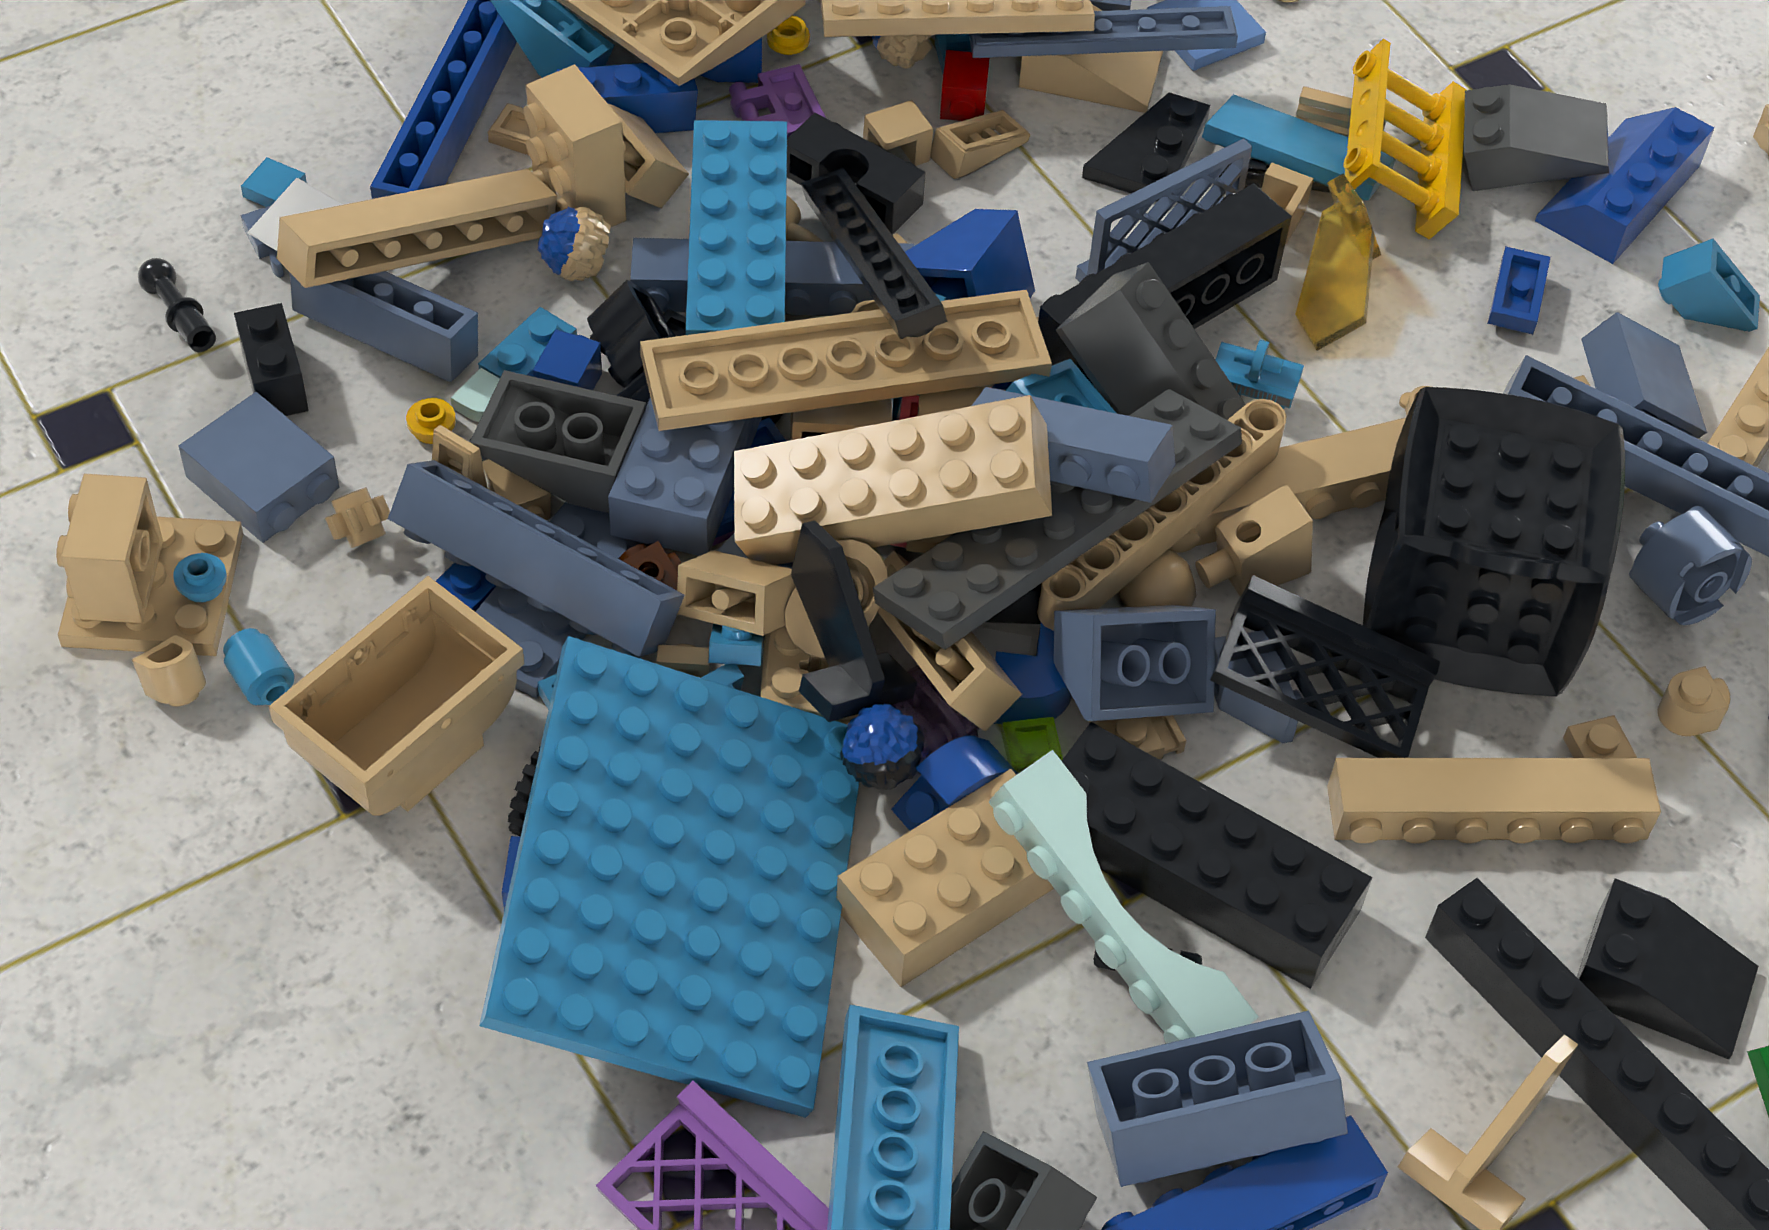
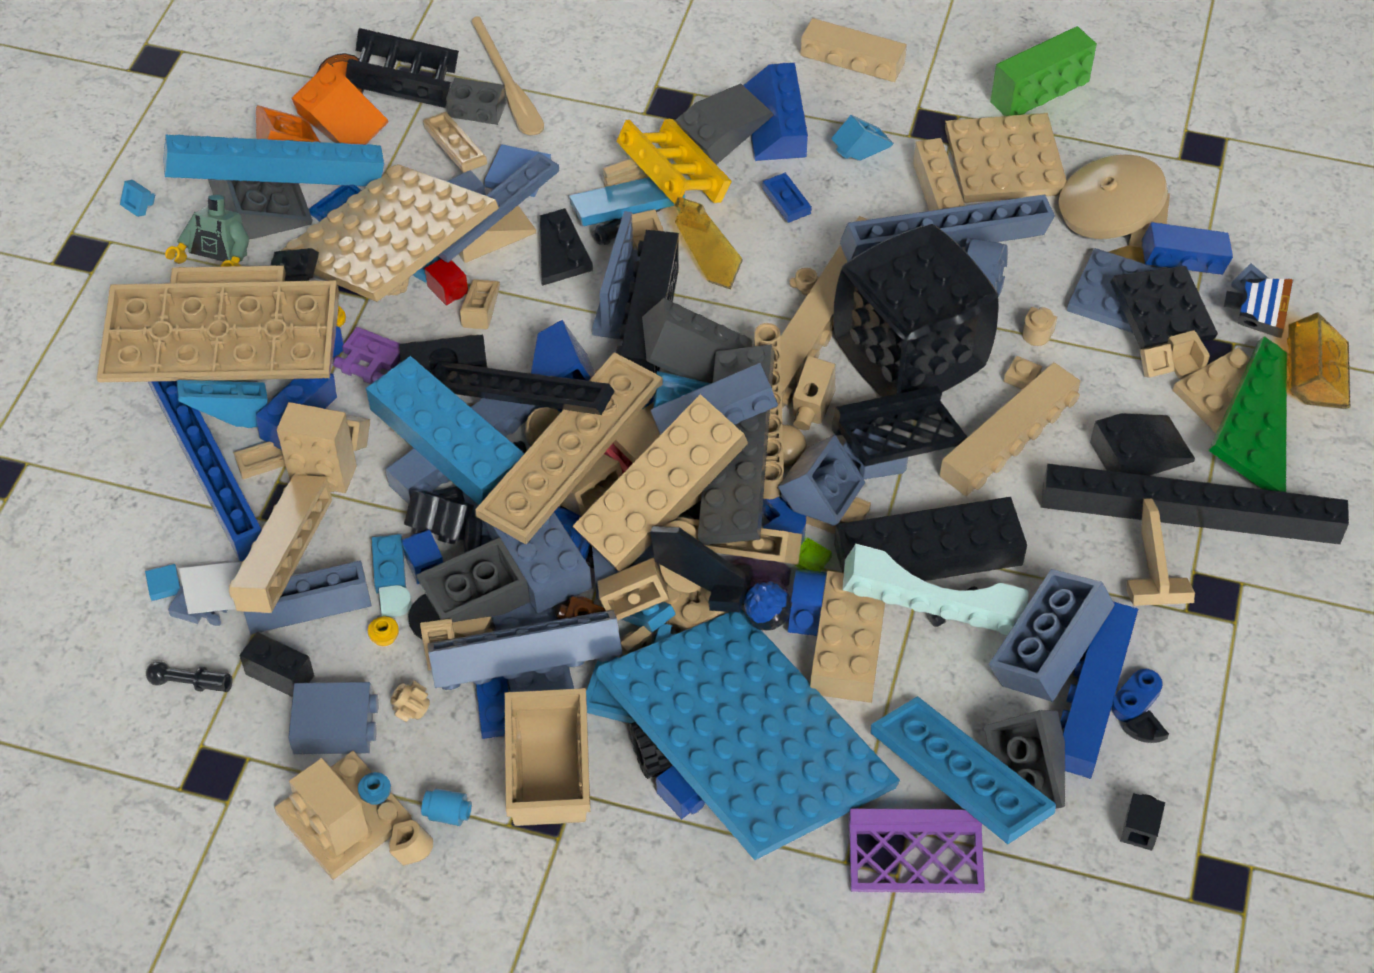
camera: 40 degrees left, 0 degrees up
(574, 243) = (358, 493): piece -> none
(903, 127) = (445, 323): tan panel -> none
(1260, 374) = (733, 315): dark azure hips -> none
(1643, 372) = (881, 197): sand blue brick -> none

